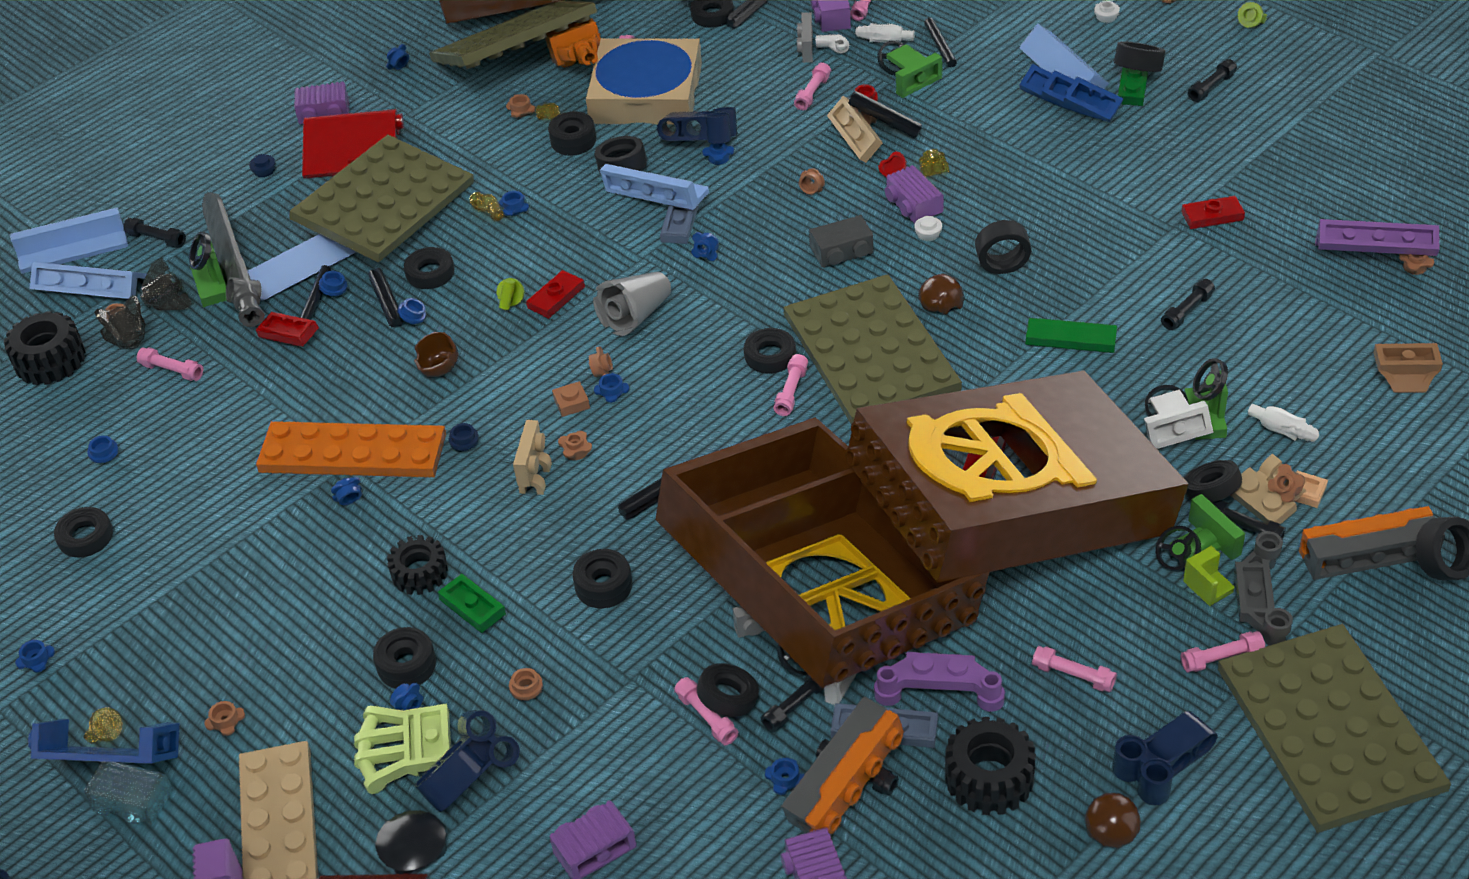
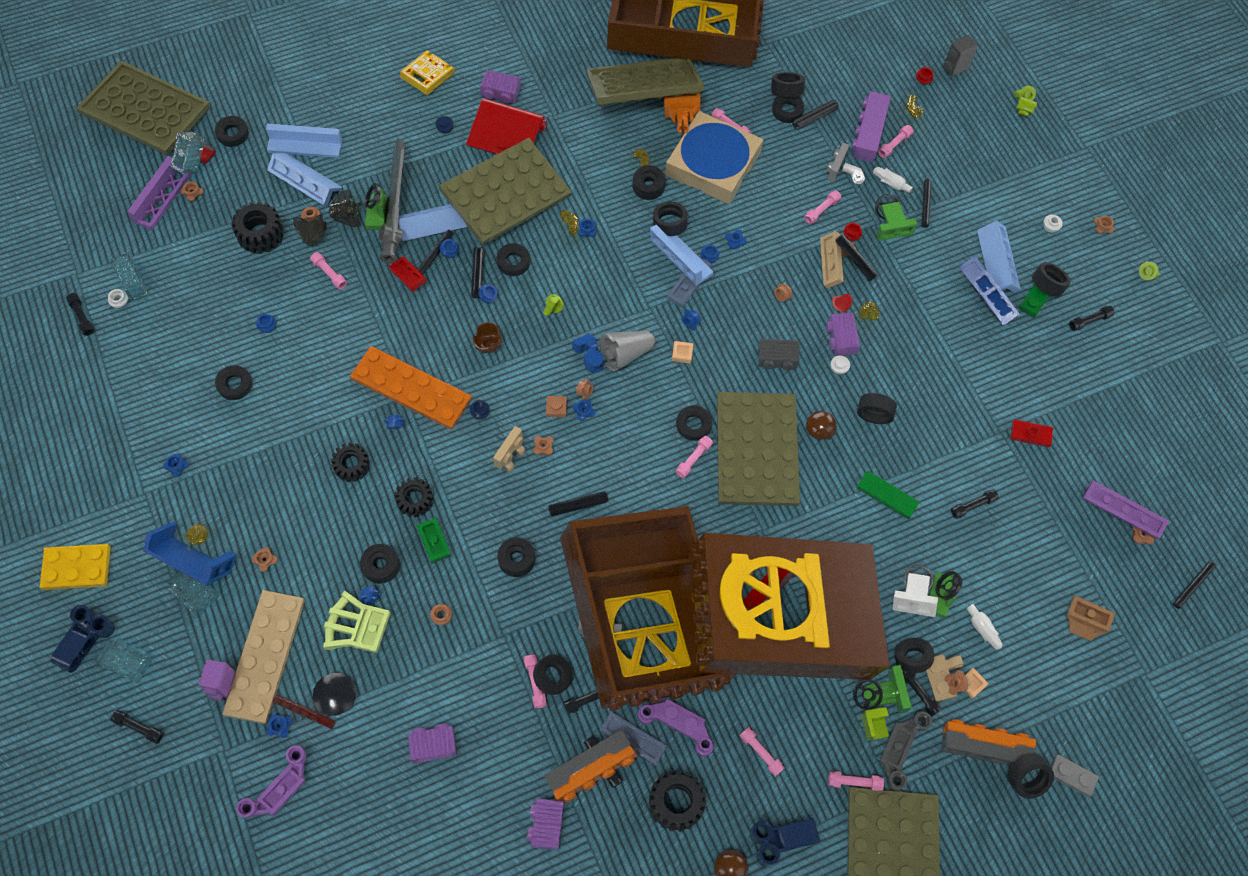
camera: 15 degrees right, 20 degrees up
(172, 237) = (348, 146): black bar -> none
(221, 116) = (429, 68): none -> yellow container
(305, 571) = (345, 452): none -> black tyre
(397, 58) = (564, 65): blue plate -> none
(465, 761) = (383, 658): dark blue piece -> none
(520, 105) = (626, 138): nougat plate -> none
(555, 294) = (582, 316): red plate -> none
(595, 327) = (593, 358): none -> blue leg
(693, 173) = (710, 253): none -> blue plate
(712, 285) = (682, 352): none -> light nougat tile
(716, 125) = (735, 216): dark blue piece -> none
(780, 768) = (560, 742): blue plate -> none

